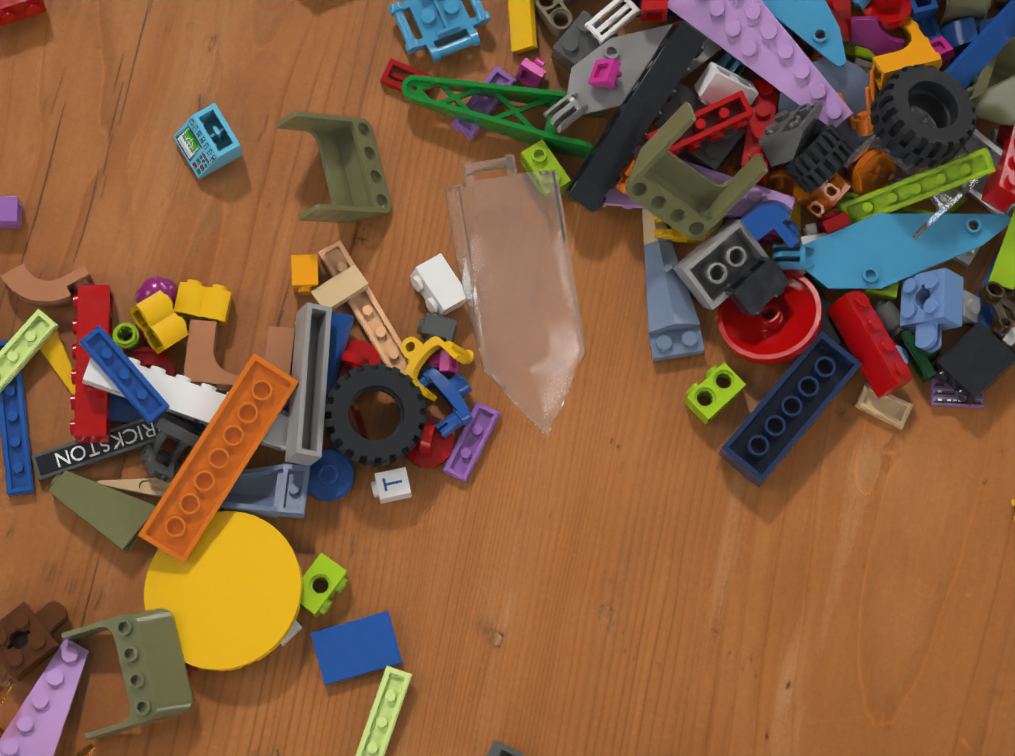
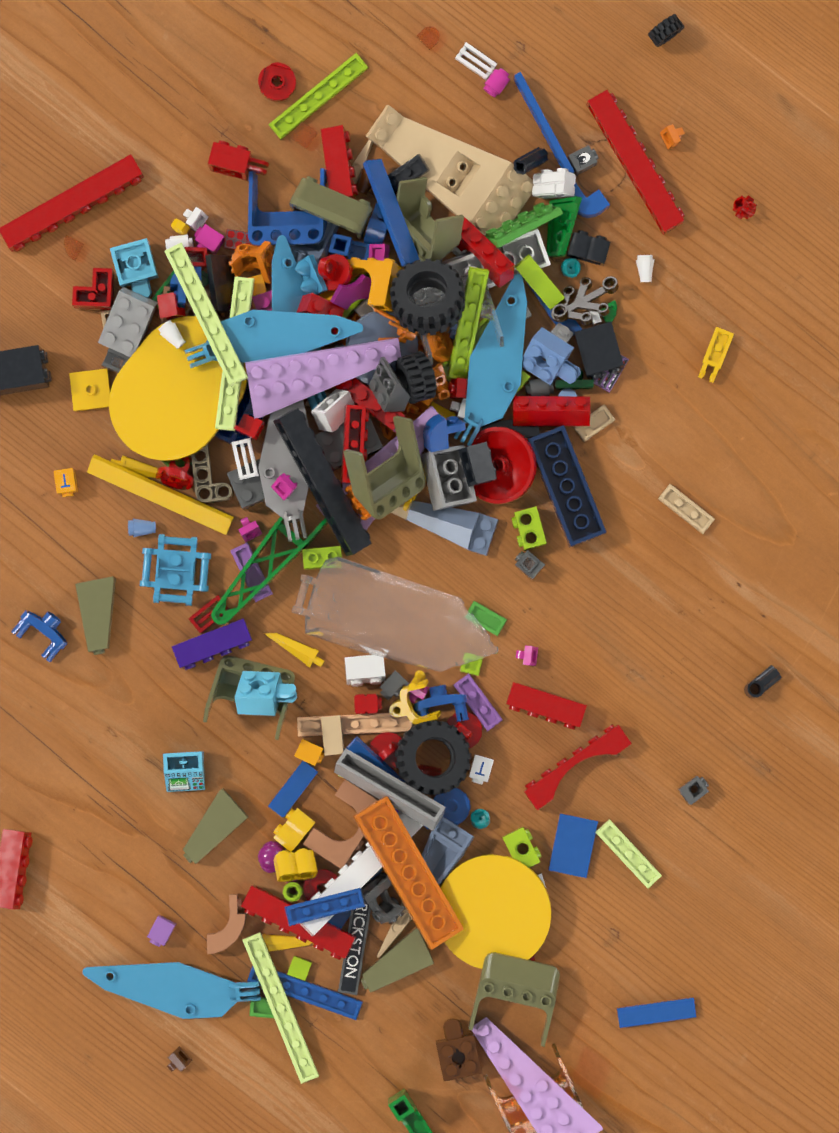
camera: 60 degrees left, 10 degrees up
(38, 396) = (299, 968): none -> lime tile
(159, 210) = (217, 823): none -> olive slope
(252, 279) = (293, 789): none -> blue tile
(330, 517) = (480, 818): none -> teal tile
(345, 177) = (261, 693): none -> medium azure brick
(375, 99) = (212, 643): none -> dark purple brick
(399, 307) = (368, 703): none -> red brick
(407, 575) = (544, 789): none -> red arch
(421, 208) = (302, 652): none -> yellow bar
(510, 413) = (472, 667): none -> lime tile
(512, 522) = (546, 705): none -> red brick
(560, 471) = (528, 655): none -> dark pink tile
(578, 401) = (488, 619): none -> bright green tile
(671, 413) = (528, 564): none -> dark grey window
(844, 570) = (686, 509): none -> tan tile

